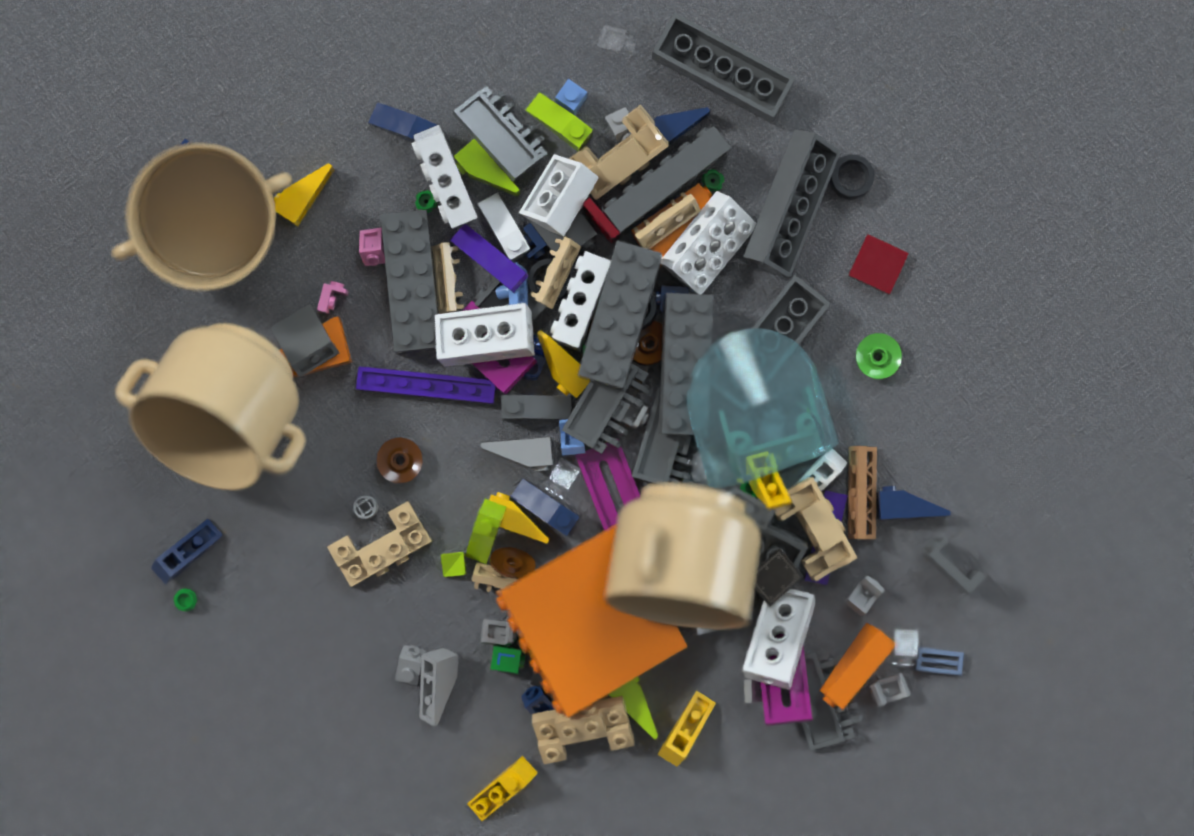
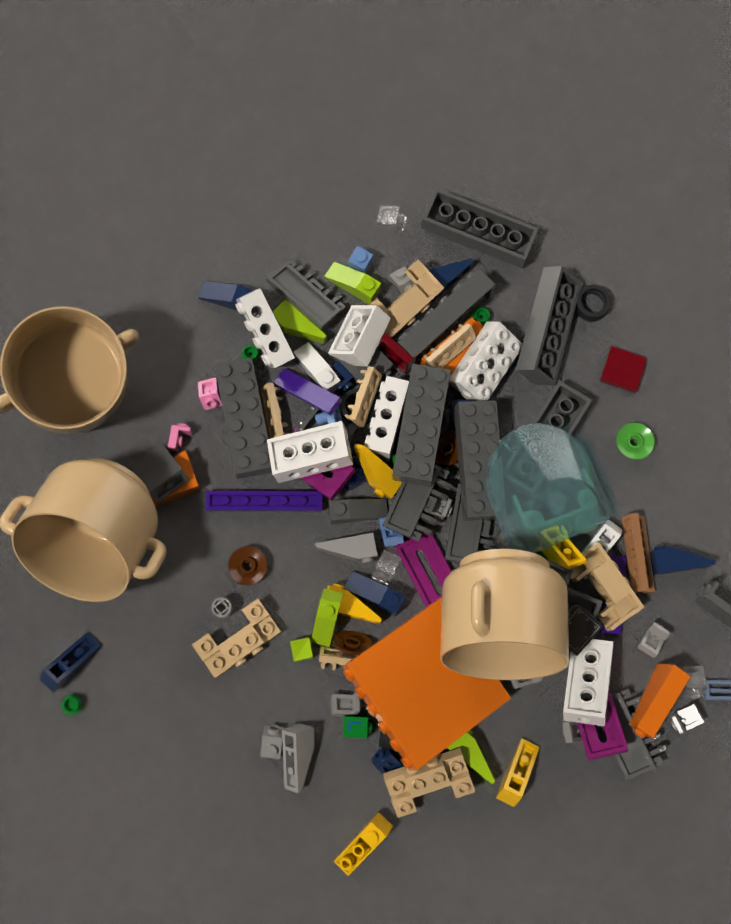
camera: 10 degrees left, 10 degrees down
(299, 197) = (146, 359): yellow slope -> none

